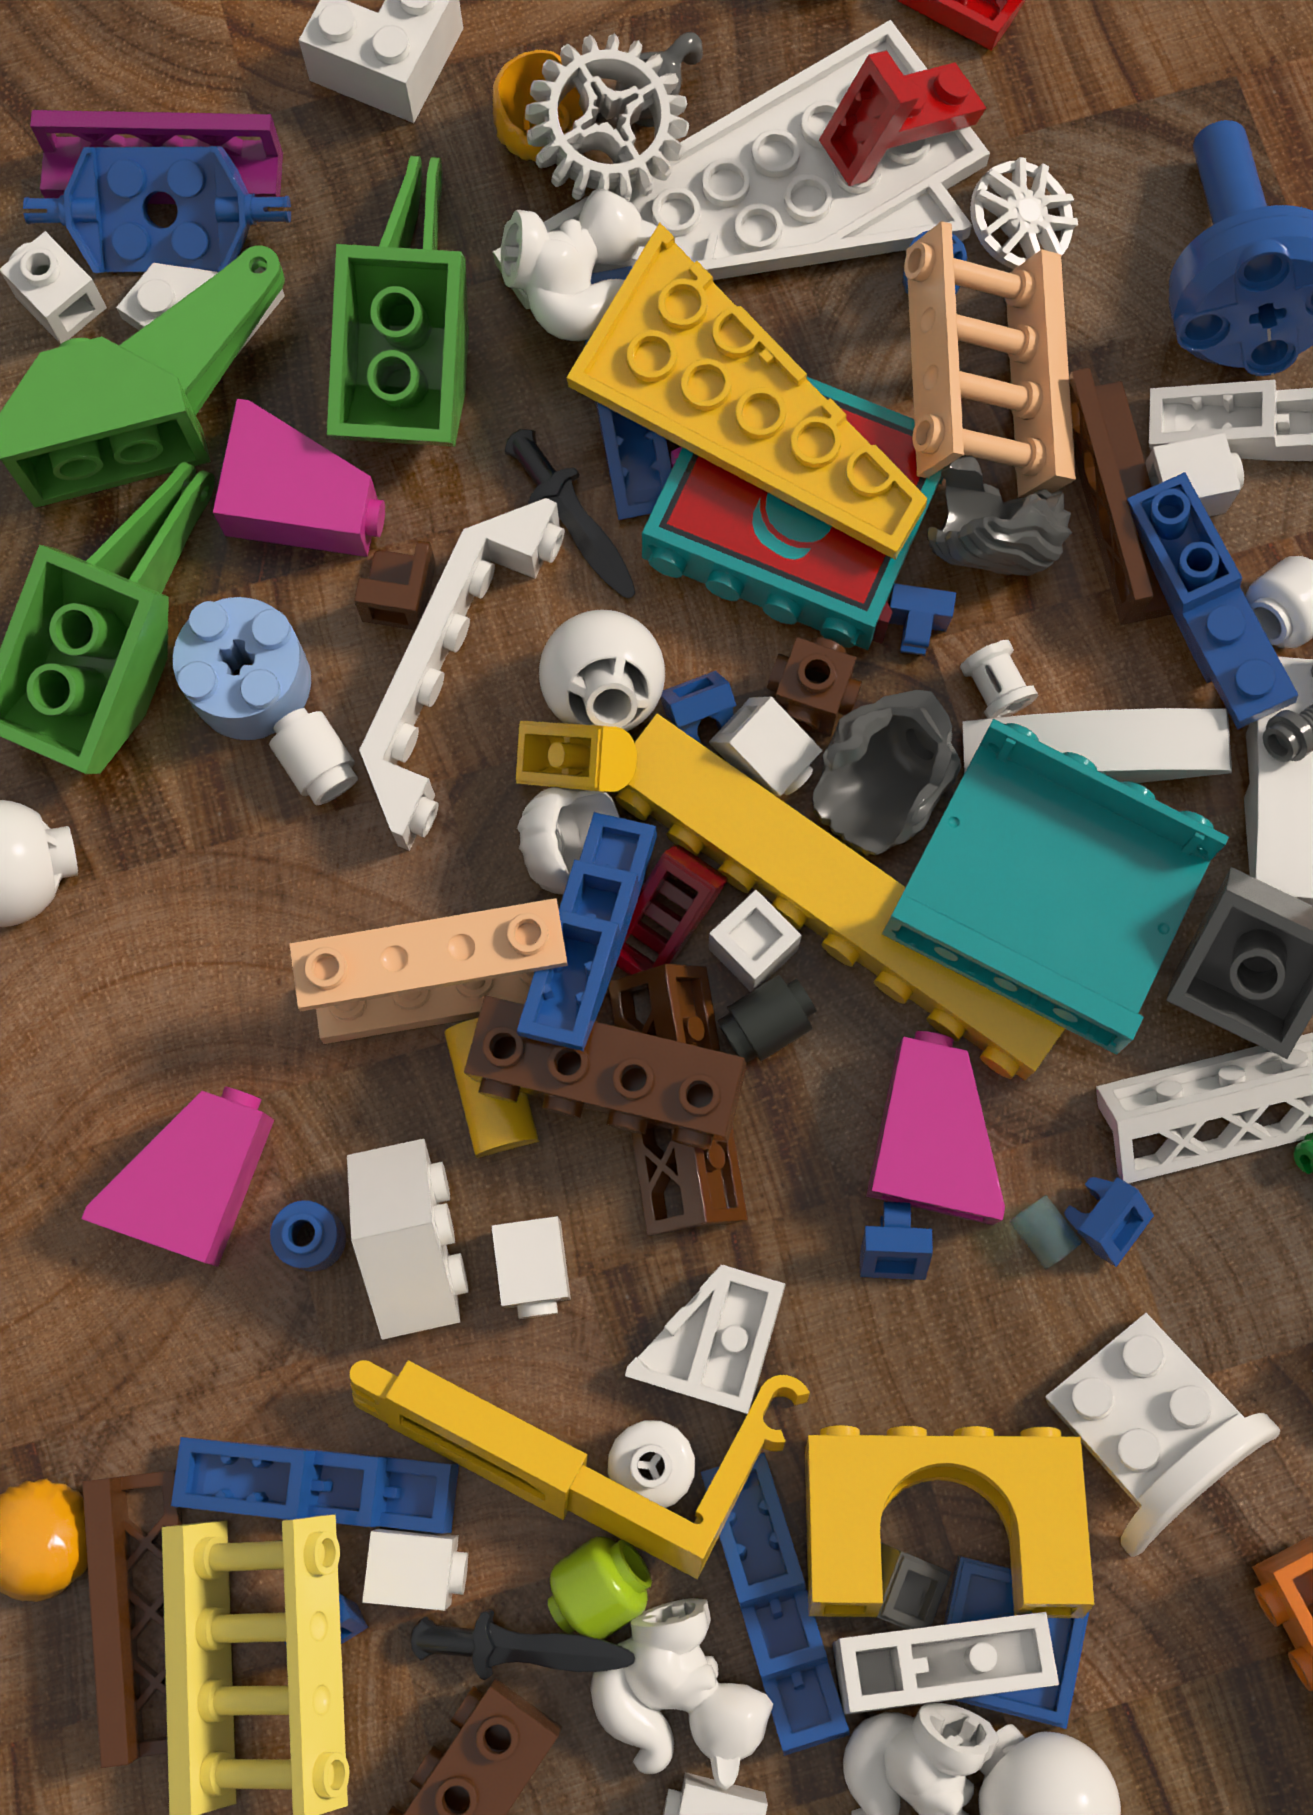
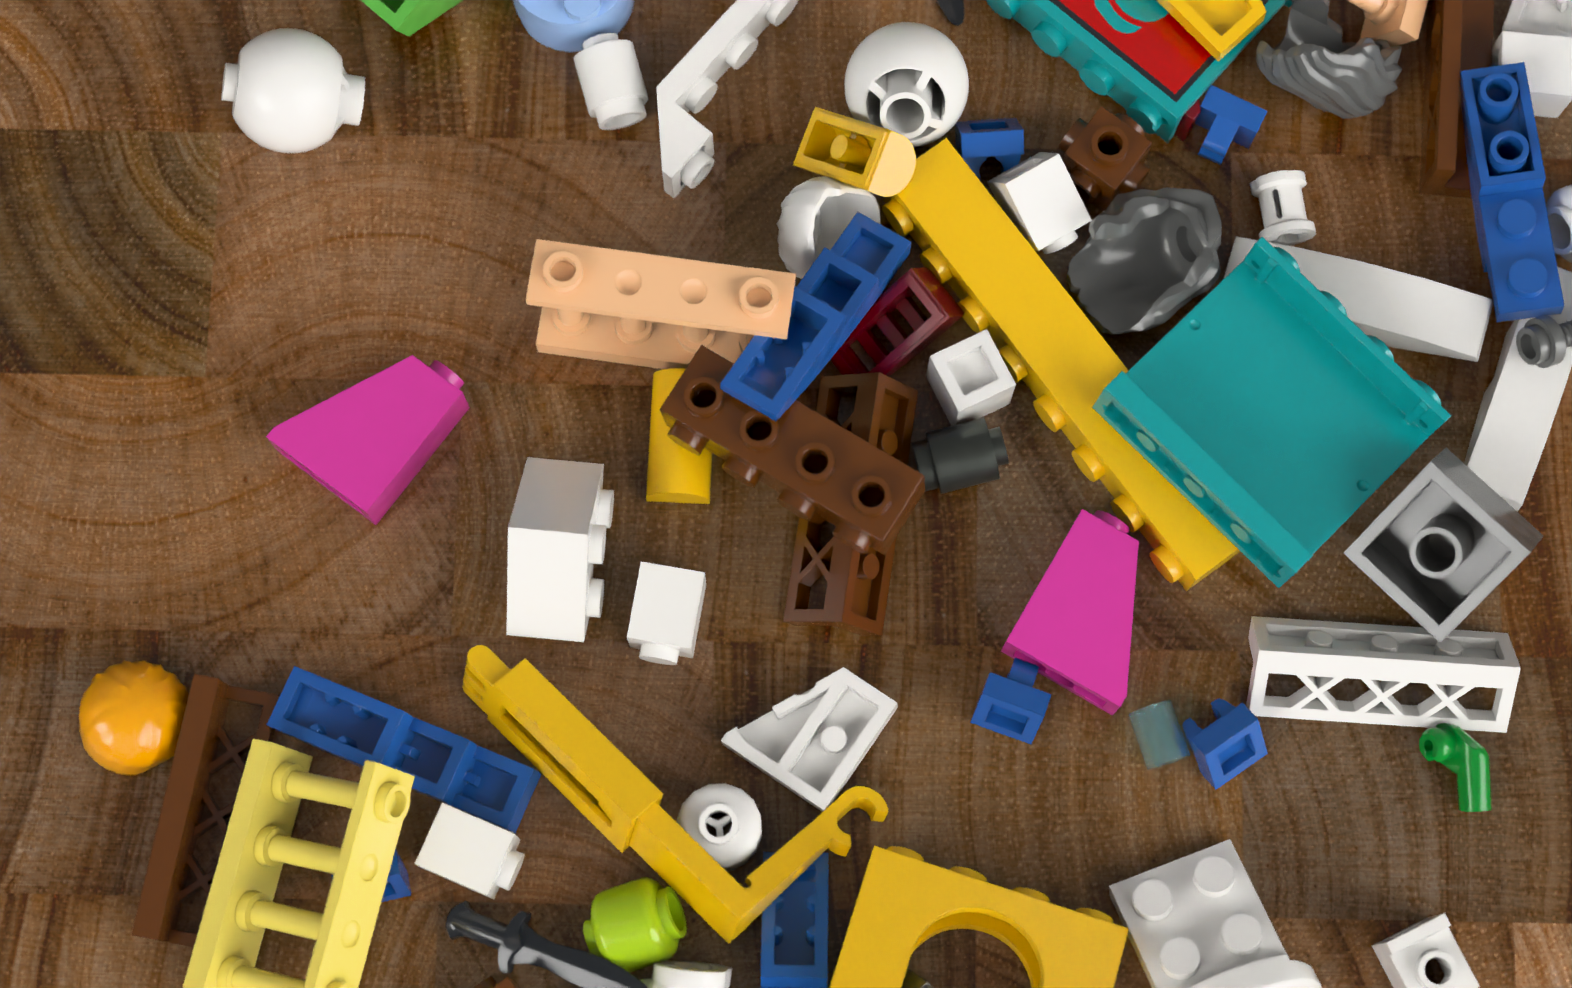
camera: 15 degrees right, 0 degrees up
(327, 1242) = (474, 537): blue brick -> none

